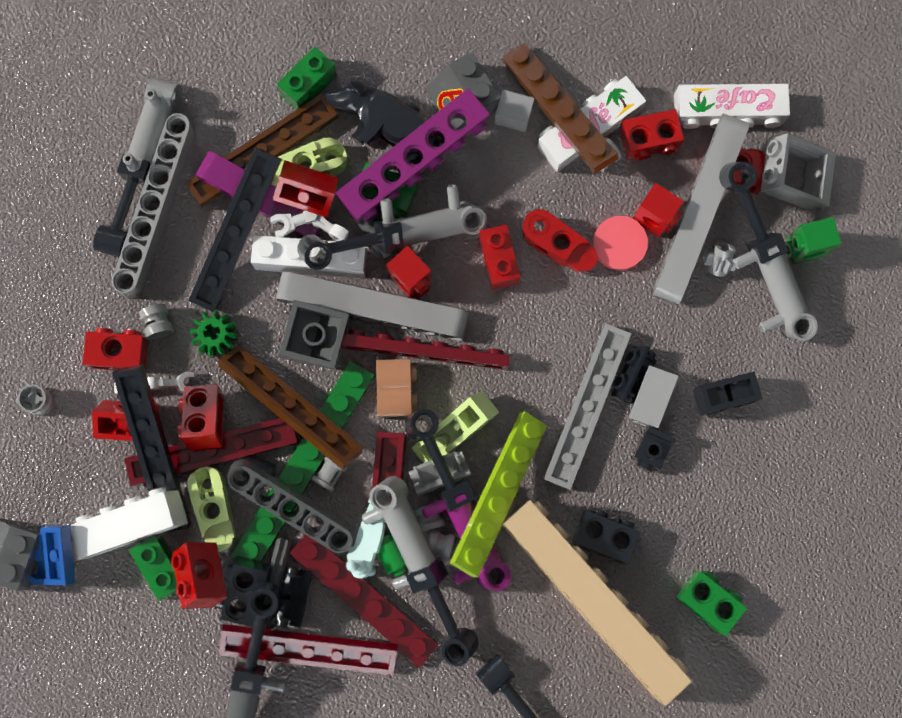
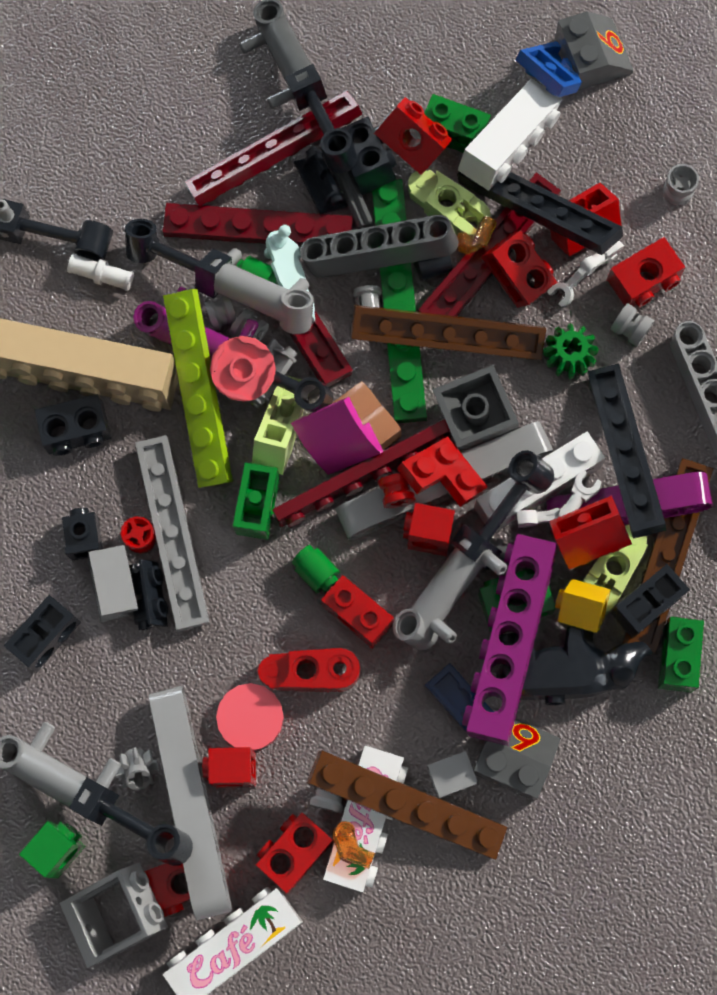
camera: 150 degrees right, 5 degrees down
(213, 461) = (477, 240): none -> clear orange arm
(302, 118) = (649, 601): none -> black brick
(347, 149) = (582, 605): none -> yellow brick
(367, 307) = (443, 464): none -> red plate
(413, 313) = (396, 491): none -> red wheel
(425, 384) = (337, 436): none -> dark pink slope
(458, 479) = (242, 368): none -> coral tile
(474, 160) = (453, 693): none -> dark blue plate
(506, 307) = (315, 569): none -> green brick
(506, 646) = (100, 272): none -> white pin
(514, 381) = (256, 501): none -> green brick
(615, 417) = (134, 529): none -> red wheel
(616, 106) = (348, 847): none -> clear orange arm

